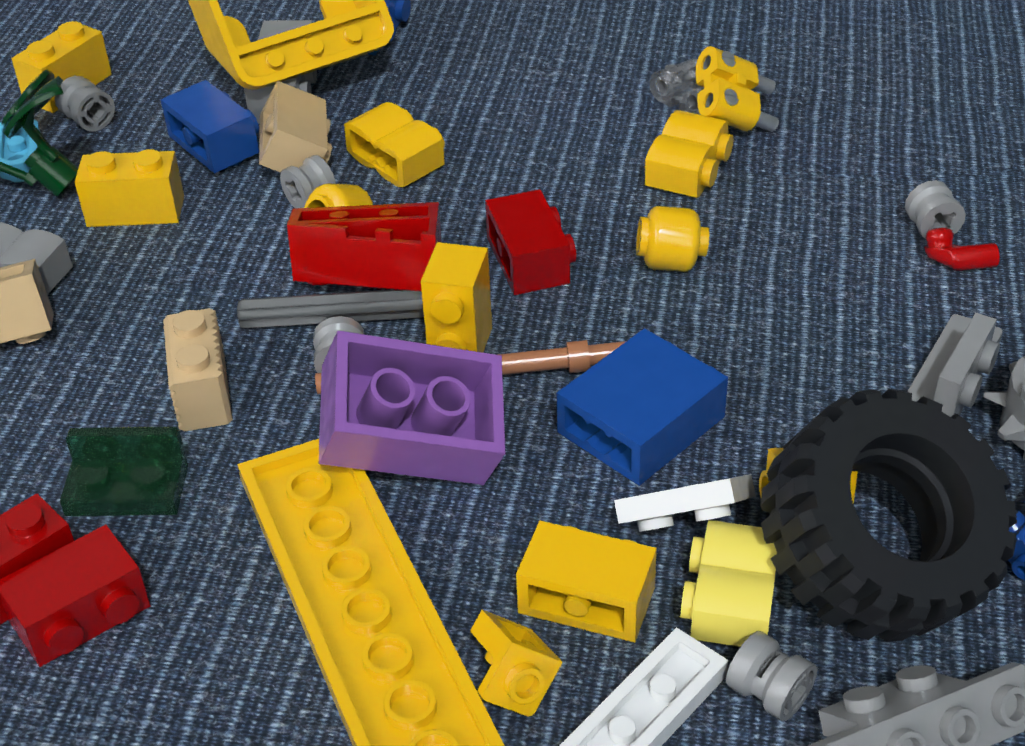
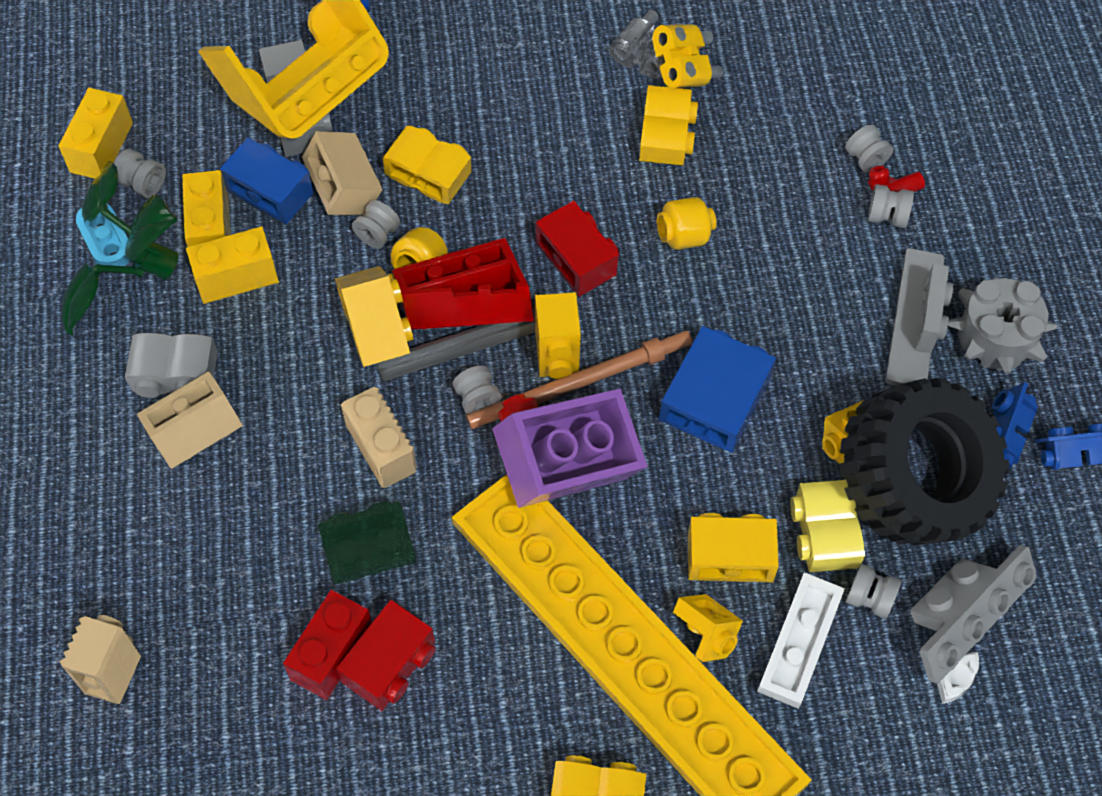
camera: 20 degrees left, 20 degrees up
(132, 127) = (205, 207): none -> yellow brick
(250, 247) = (373, 315): none -> yellow brick
(706, 499) = (775, 469): white wing -> none
(944, 267) = (890, 206): none -> light grey wheel

